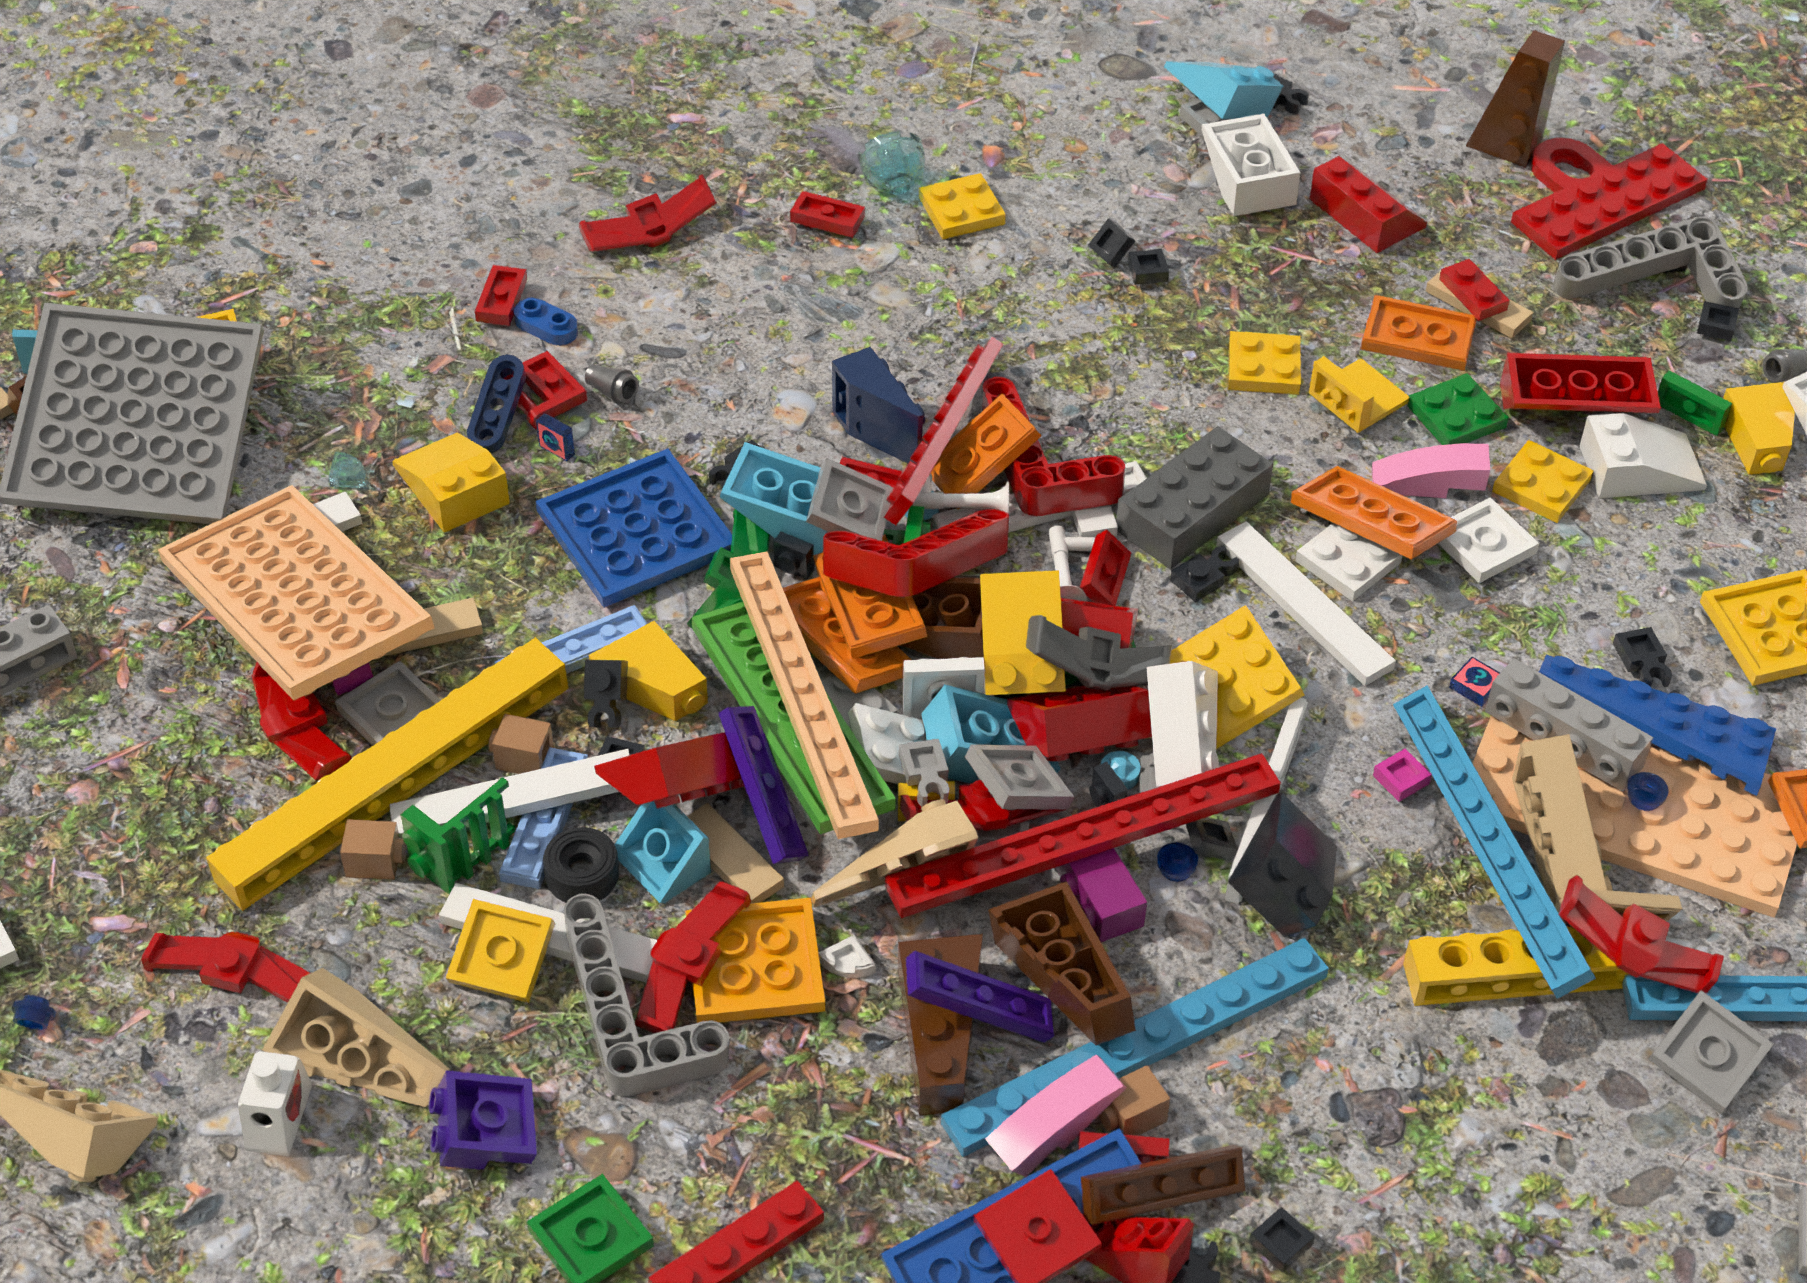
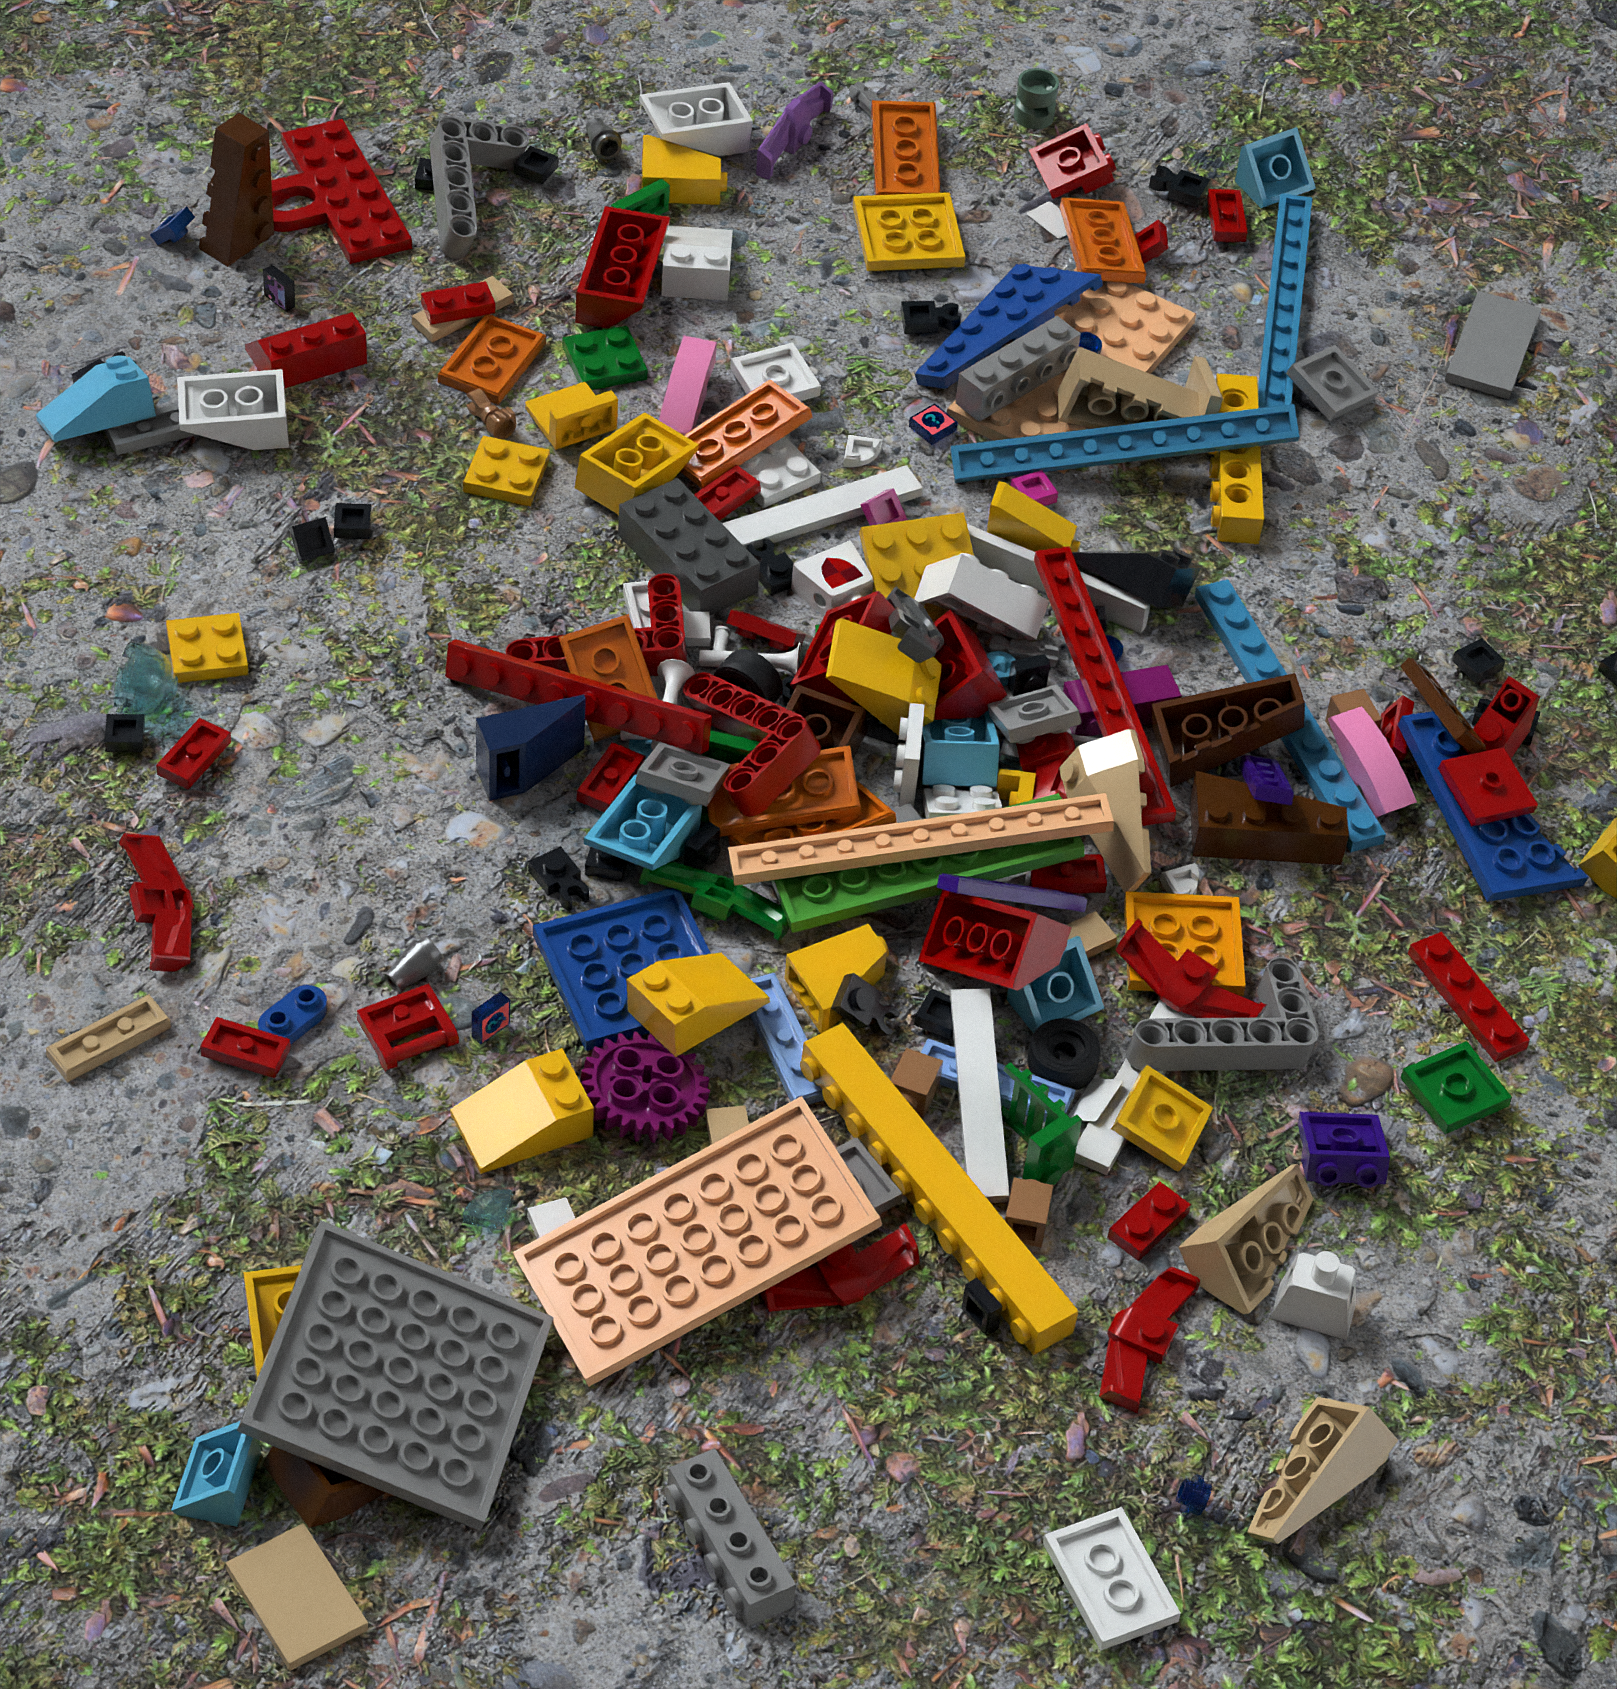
camera: 85 degrees left, 0 degrees up
(249, 814) = (981, 1306): none -> black tile
(380, 959) = (1149, 1221): none -> red plate
(460, 549) = (644, 1087): none -> magenta gear
(493, 393) = (424, 1045): dark blue plate -> none
(505, 221) = (108, 1038): none -> tan tile
(527, 898) = (1095, 1099): none -> white sticker
(582, 555) = (691, 999): none -> yellow slope
(827, 852) = (1073, 876): none -> red plate
(839, 171) = (124, 733): none -> black plate
(925, 765) = (1010, 778): light grey plate -> none
(1012, 549) = (751, 673): none -> black tyre
(1186, 611) = (832, 578): none -> white torso
(1284, 516) = (729, 492): none -> red plate
(1297, 436) = (632, 461): none -> yellow slope
(1312, 646) = (884, 508): none -> dark pink plate
(1320, 760) = (1027, 522): none -> yellow slope
(1325, 343) = (498, 421): none -> medium nougat piece
(1408, 625) = (861, 451): none -> white tile
(1438, 172) = (279, 288): none -> black tile
(1482, 94) = (173, 227): none -> blue plate
(1542, 481) = (706, 319): yellow plate -> none
(1637, 941) = (1249, 381): red plate -> none

